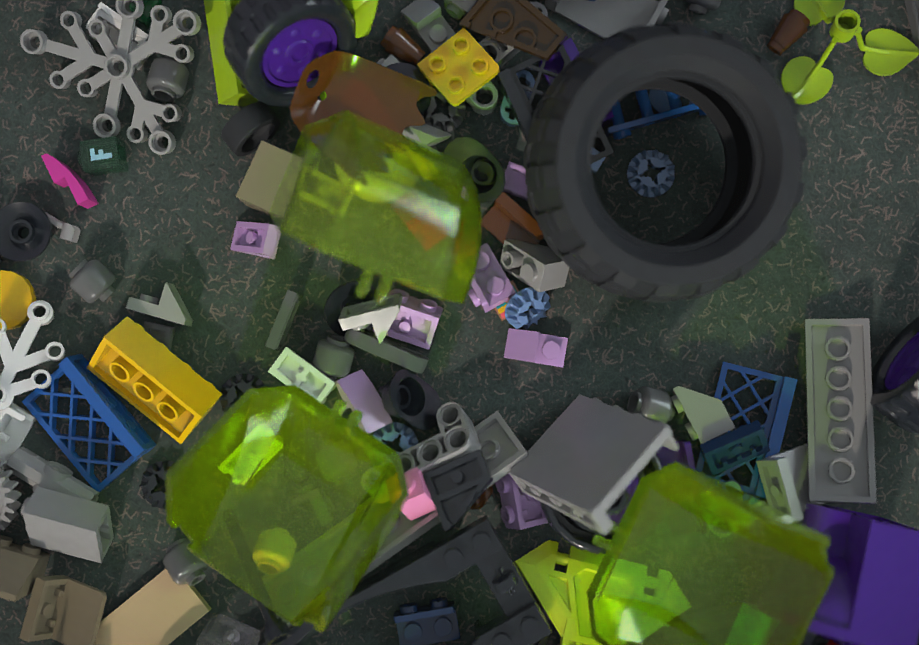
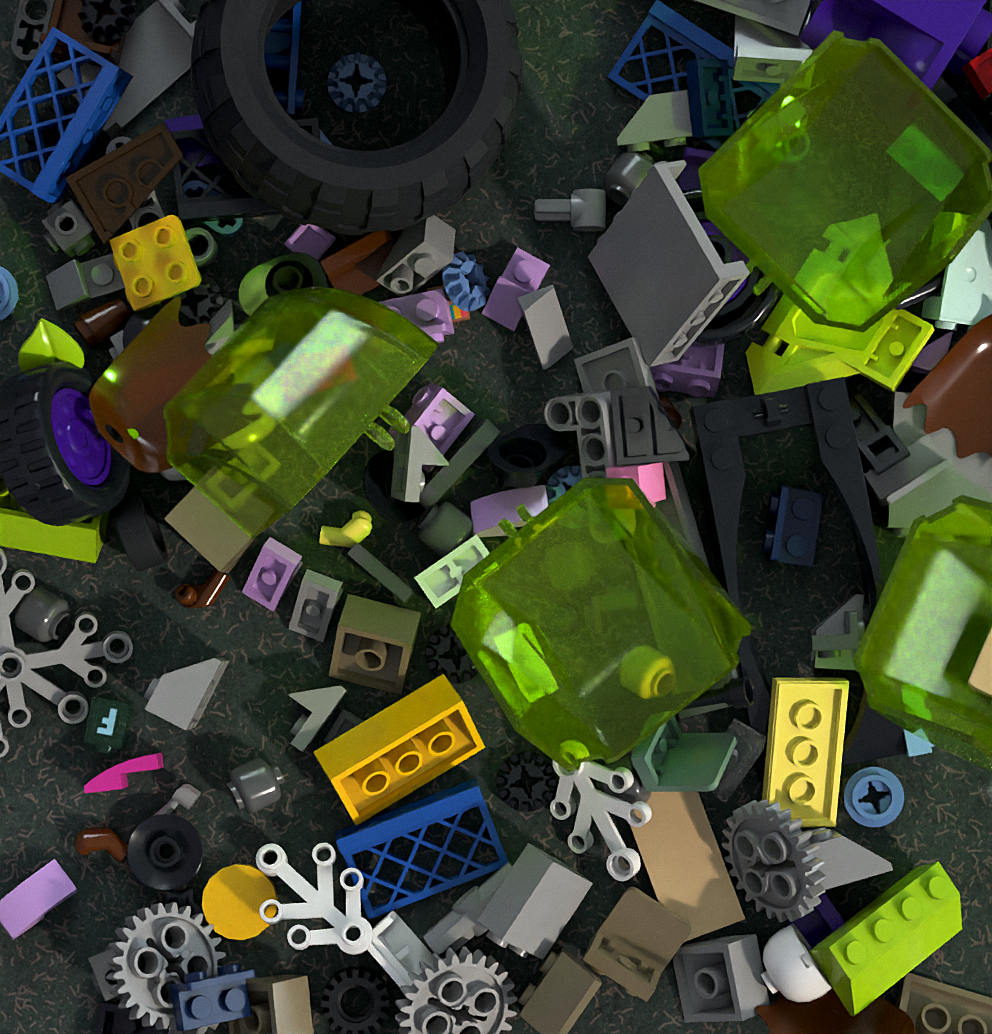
camera: 70 degrees left, 0 degrees up
(16, 180) = (101, 839): none -> reddish brown arm
(124, 582) = (595, 805): none -> white plant
(139, 203) = (184, 693): none -> light grey slope
(212, 606) = (682, 760): none -> sand green bracket
(223, 190) = (202, 594): none -> reddish brown arm
(229, 333) = (374, 644): none -> dark tan slope
(243, 279) = (315, 605): none -> light grey slope
(307, 287) = (350, 534): none -> light yellow arm
(515, 380) = (545, 325): none -> light grey slope
(613, 379) = (584, 210): none -> light grey axle

